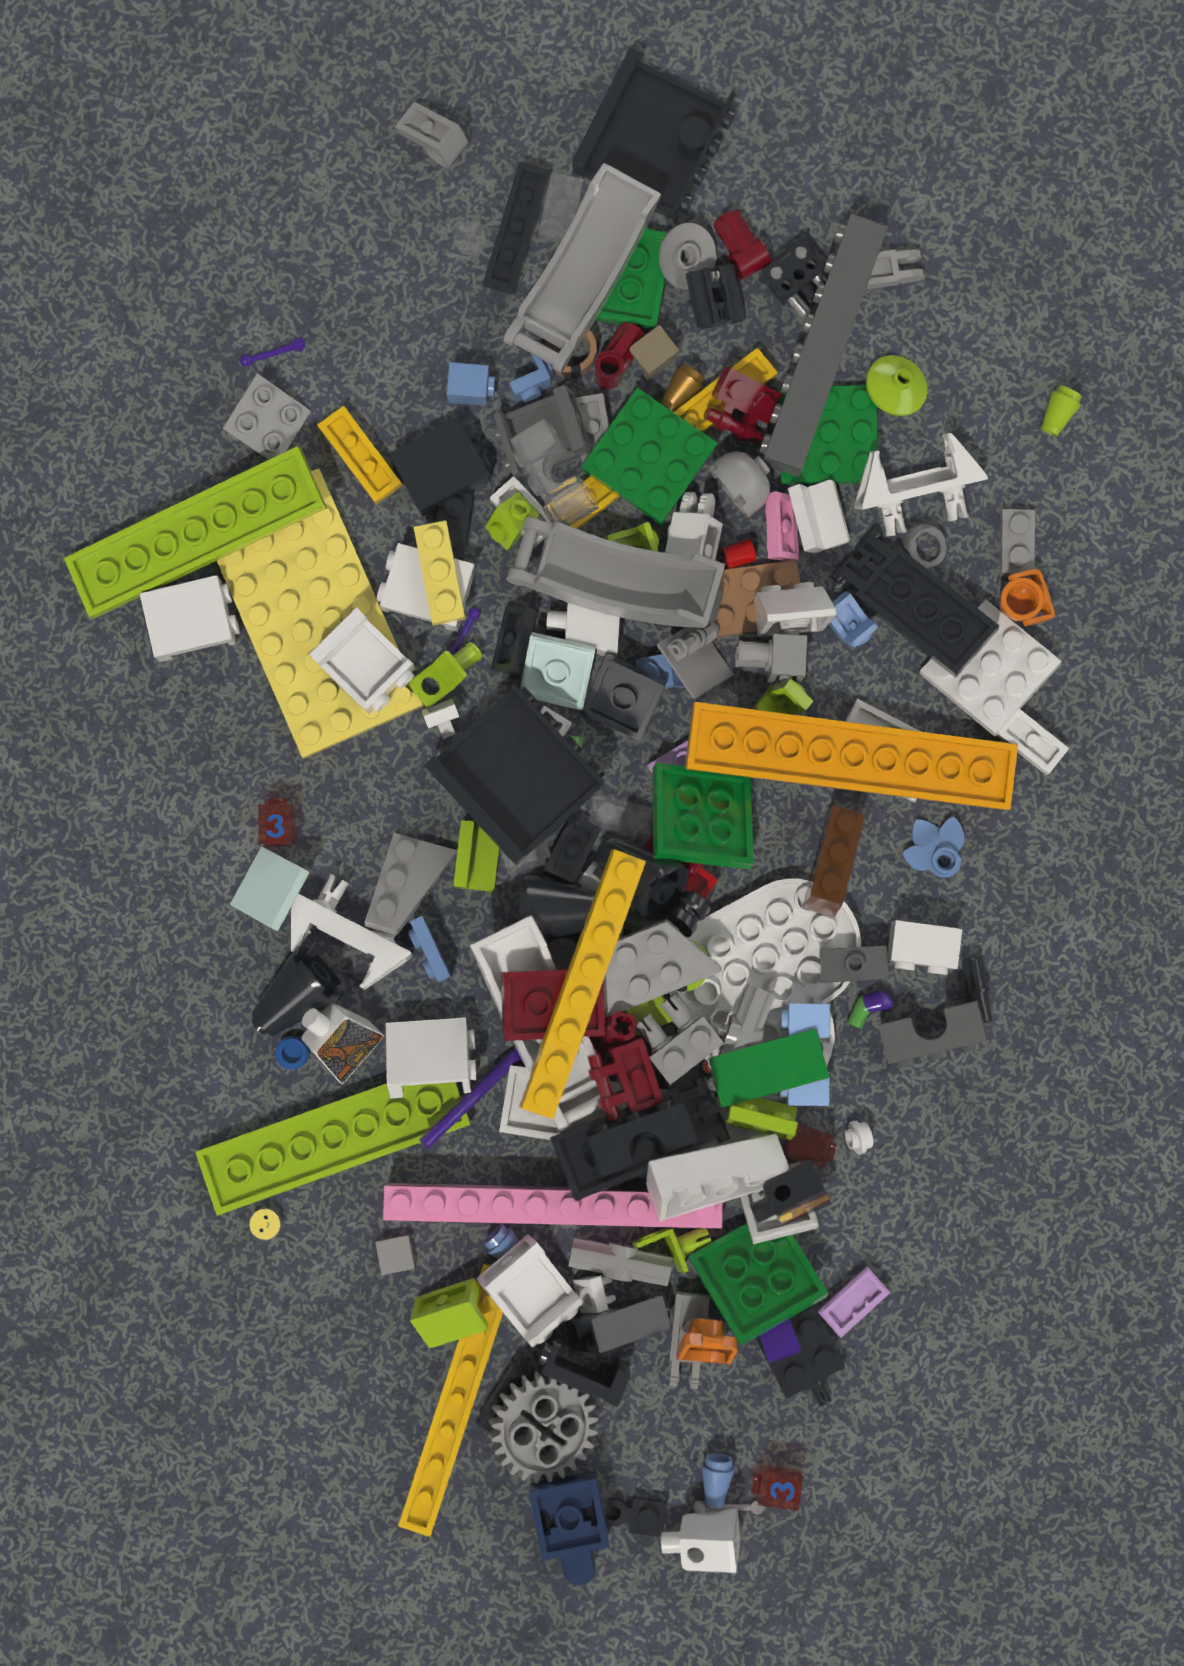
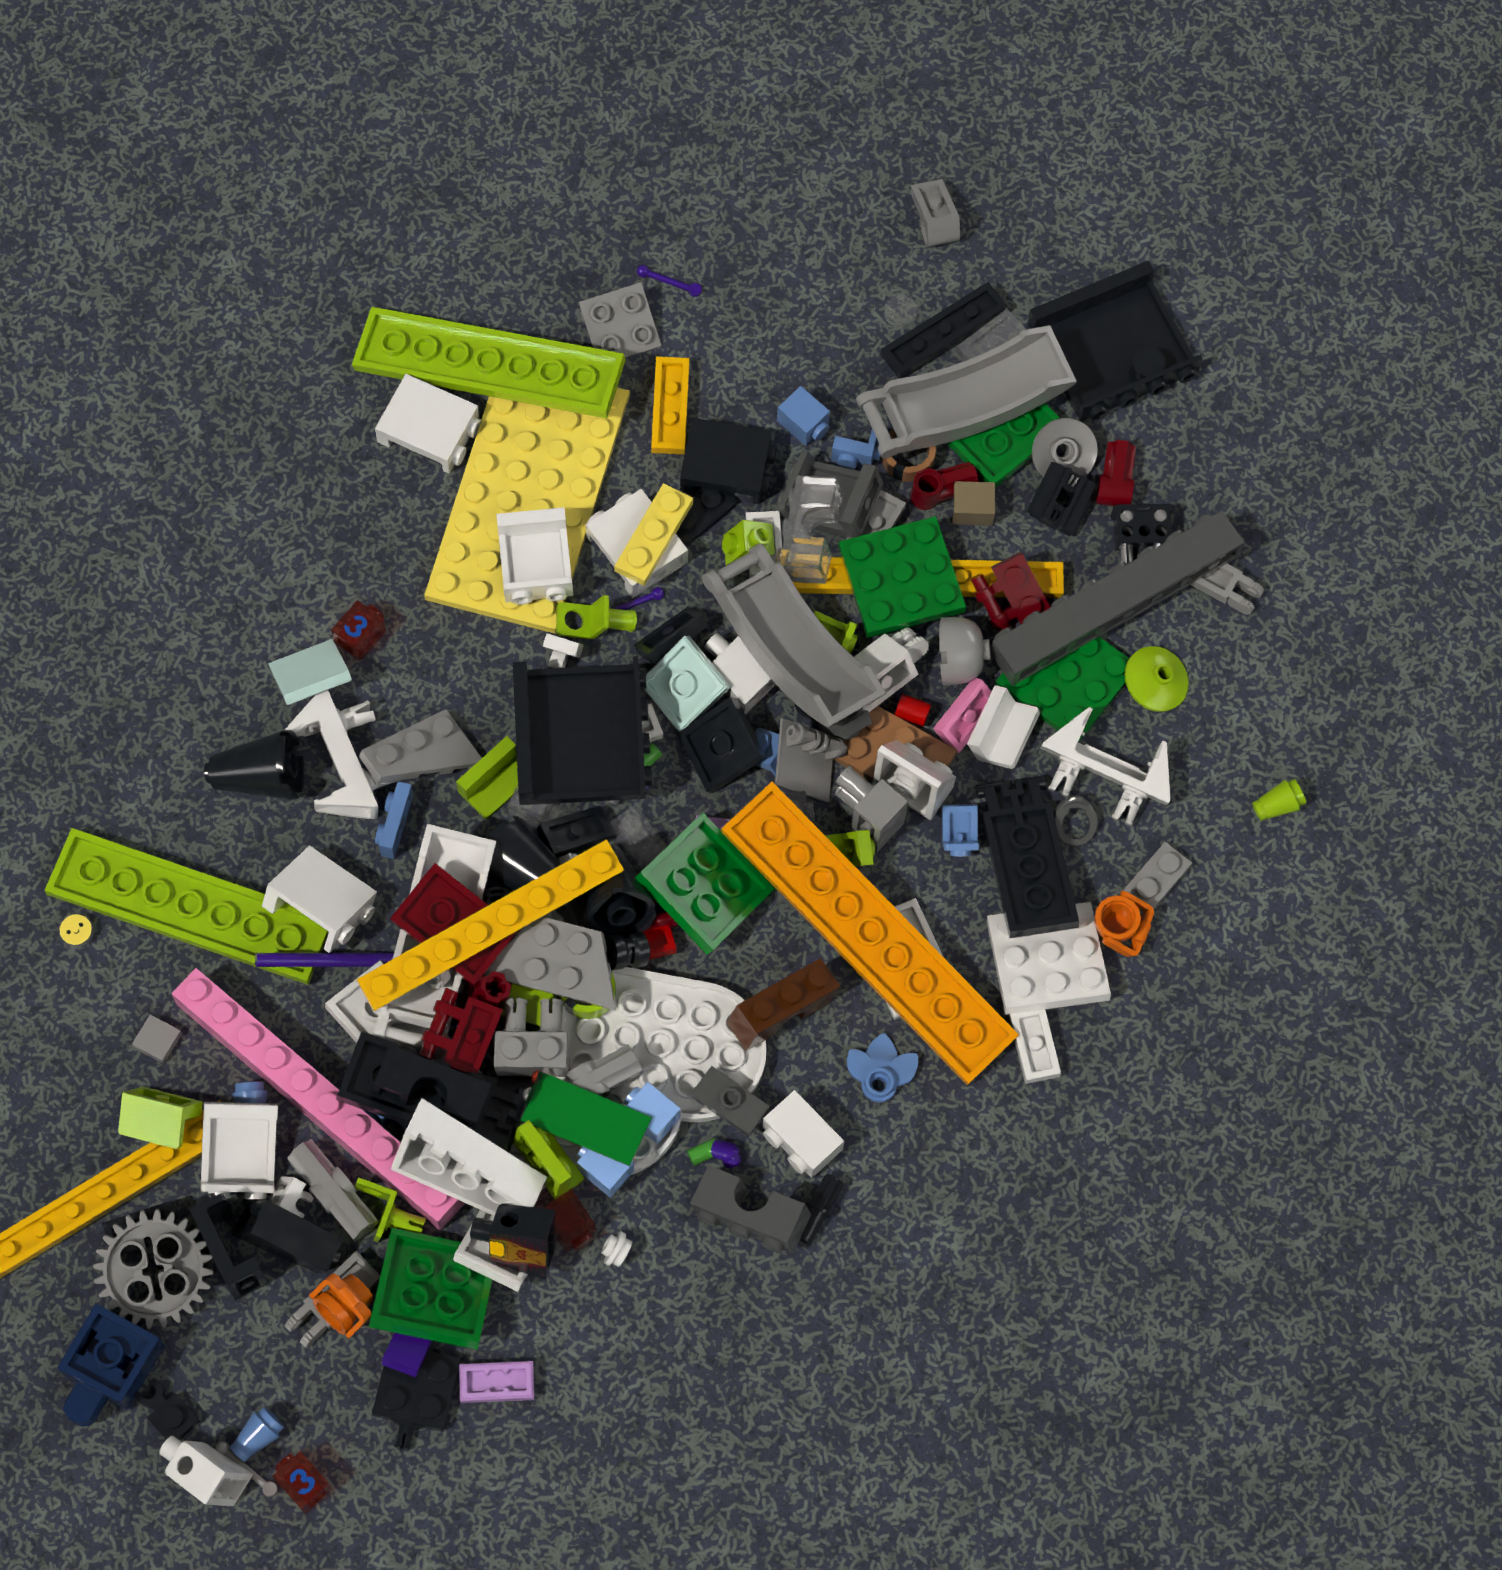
camera: 40 degrees right, 15 degrees down
(292, 1053) = (215, 816): blue tile -> none
(340, 1039) = (261, 828): torso -> none
(682, 387) = (976, 546): pearl gold cone -> none

